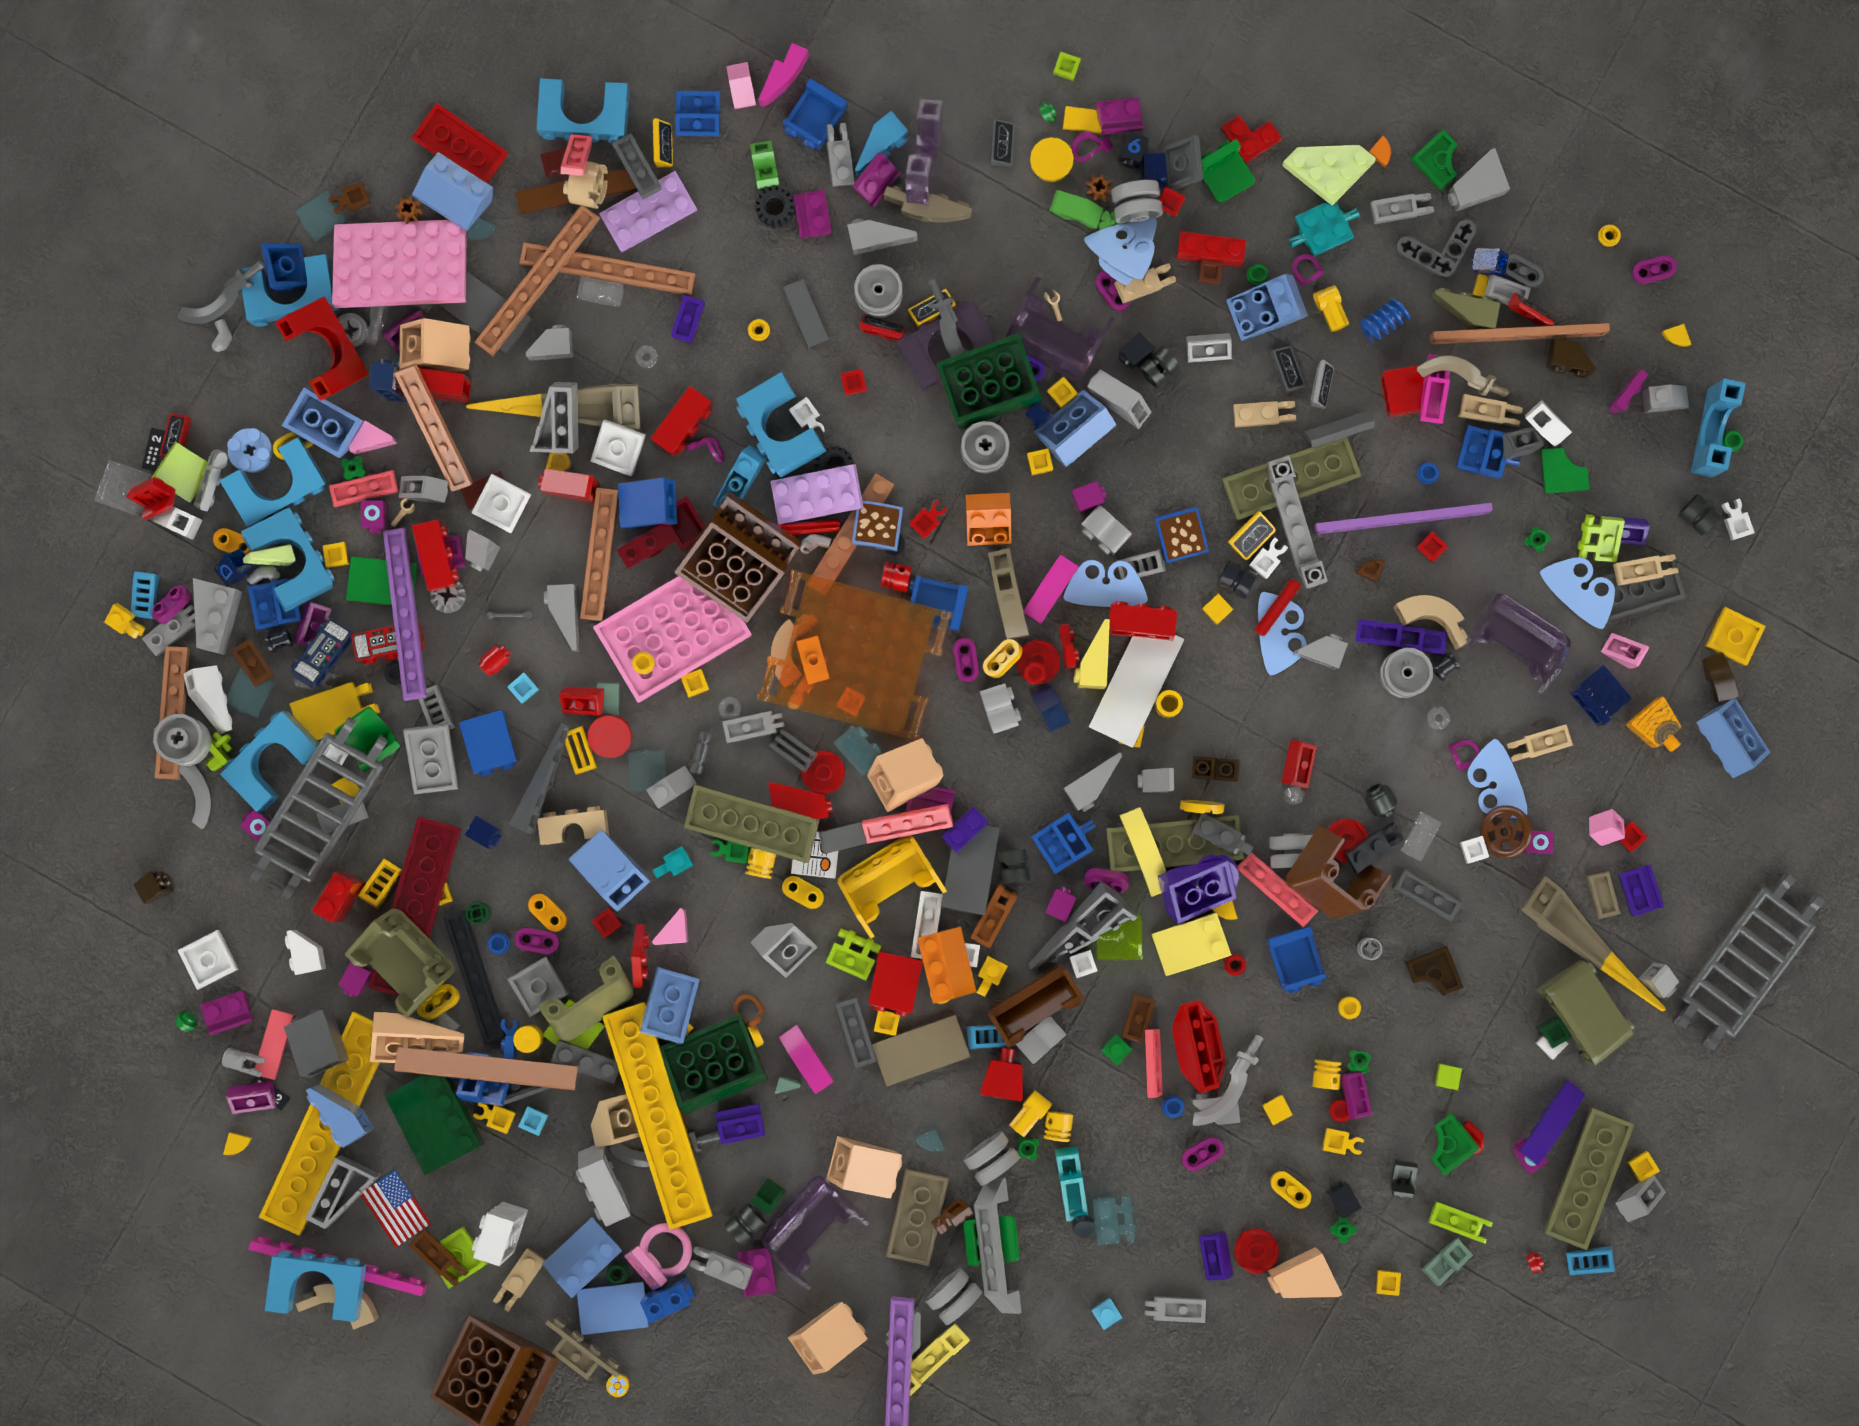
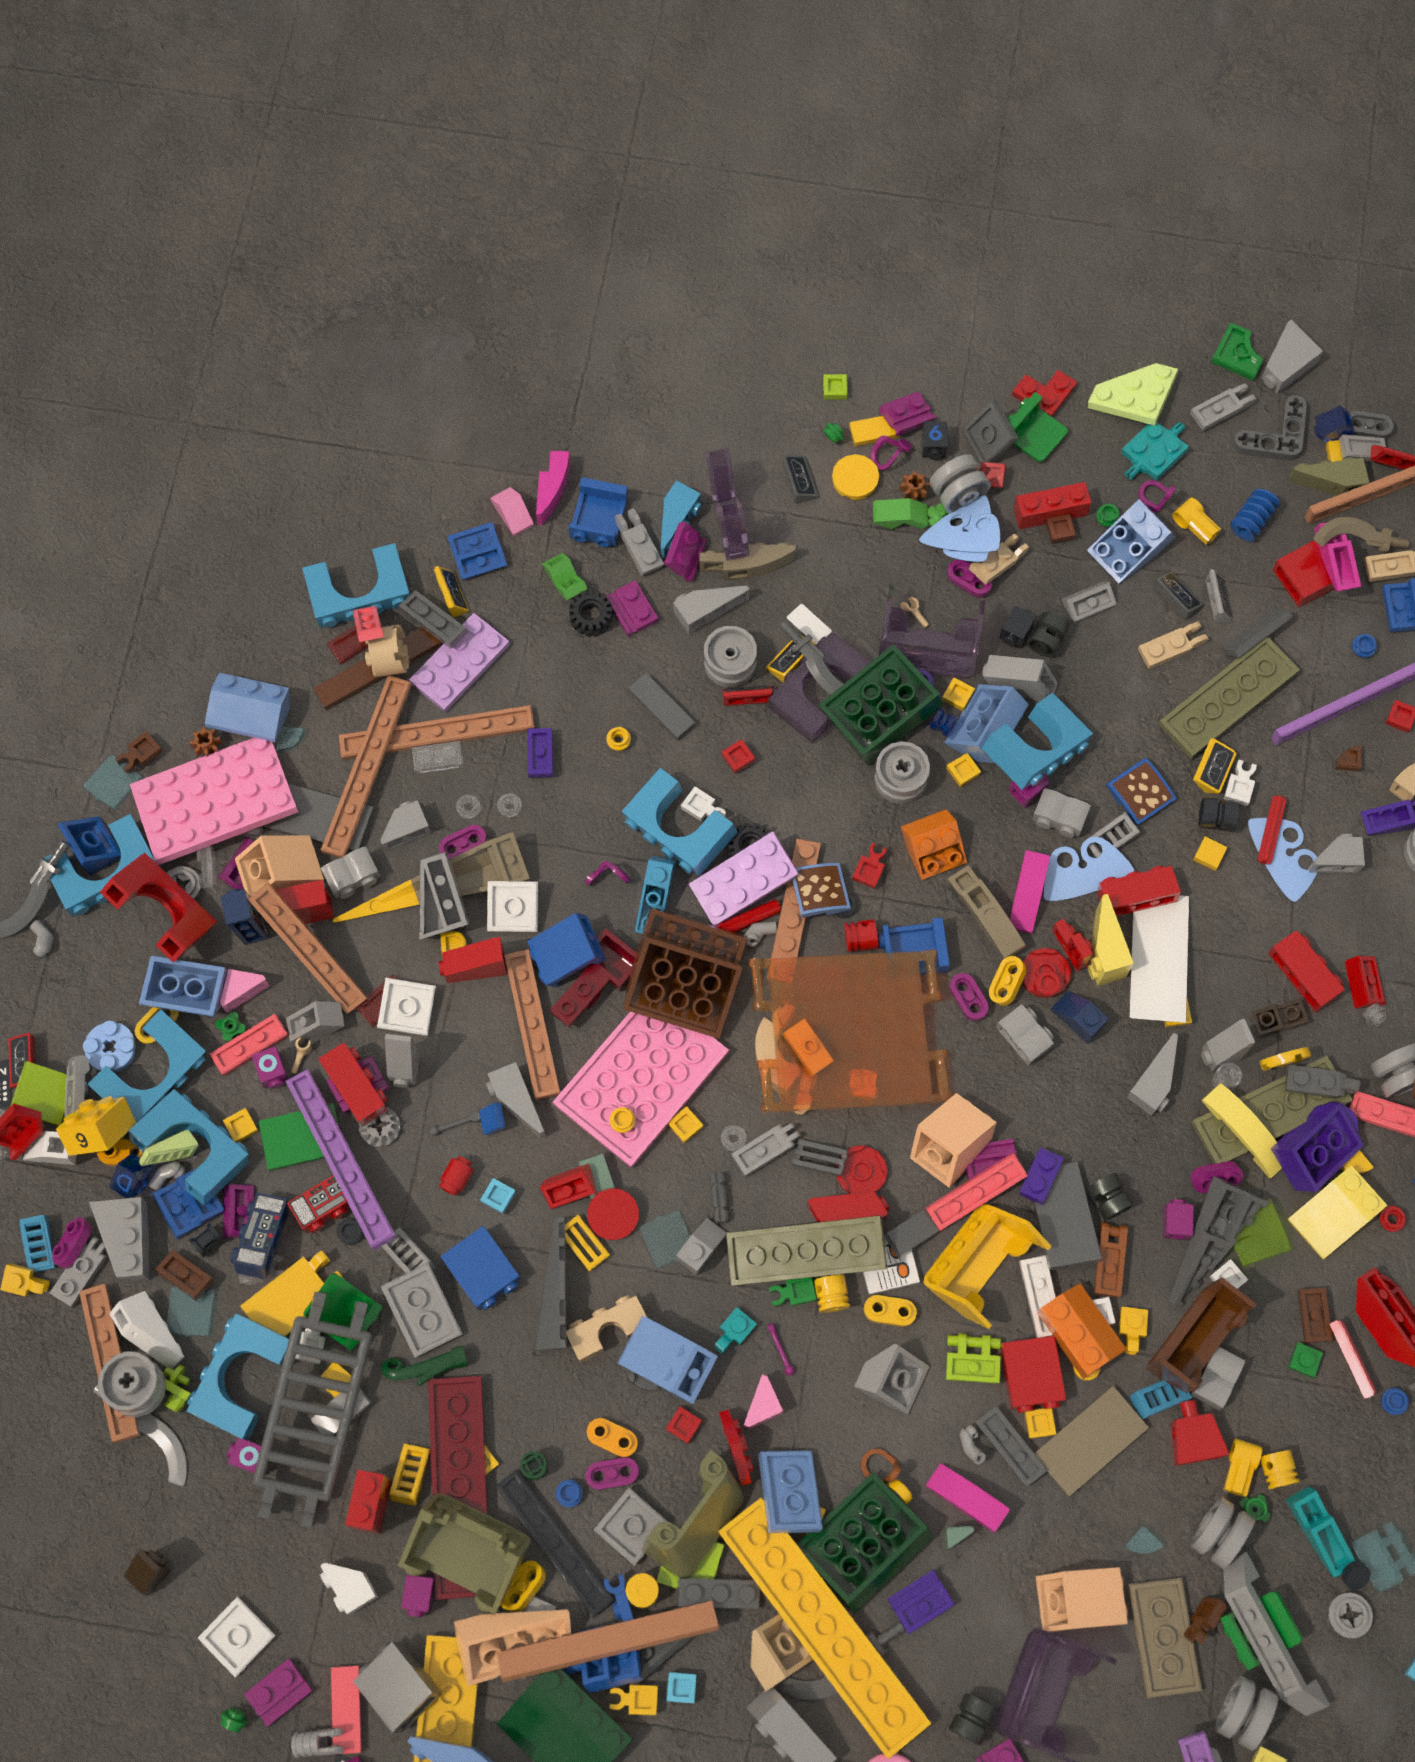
camera: 20 degrees left, 15 degrees down
(215, 518) = (96, 1125): none -> yellow brick
(419, 807) = (425, 1369): none -> dark green plant
(460, 143) = (238, 657): red plate -> none
(484, 832) = (509, 1371): clear blue brick -> none
(493, 370) = (351, 872): none -> light grey brick
(539, 623) = (492, 1118): none -> blue tile
(595, 376) = (461, 840): none -> magenta plate
(611, 339) = (466, 800): none -> clear plate
(682, 422) = (572, 856): red brick -> none
(706, 909) = (789, 1369): none -> magenta hinge
(768, 1196) = (986, 1676): dark green panel -> none
(823, 1022) = (969, 1447): none -> light grey arm
(857, 749) = (891, 1131): clear light blue bracket -> none
(960, 282) = (808, 623): none -> white sticker
(1063, 842) = (1152, 1152): blue plate -> none
(1073, 1261) = (1356, 1603): none -> light grey gear
(1089, 481) = (1028, 765): none -> dark azure arch
(1147, 805) = (1222, 1076): none -> clear wheel
(1155, 168) = (963, 444): clear blue brick -> none
(1168, 704) = (1202, 966): yellow piece -> none
(1253, 738) = (1306, 970): none -> red brick
(1294, 522) = (1251, 736): light grey slope -> none
(1381, 151) = (1181, 362): orange tile -> none

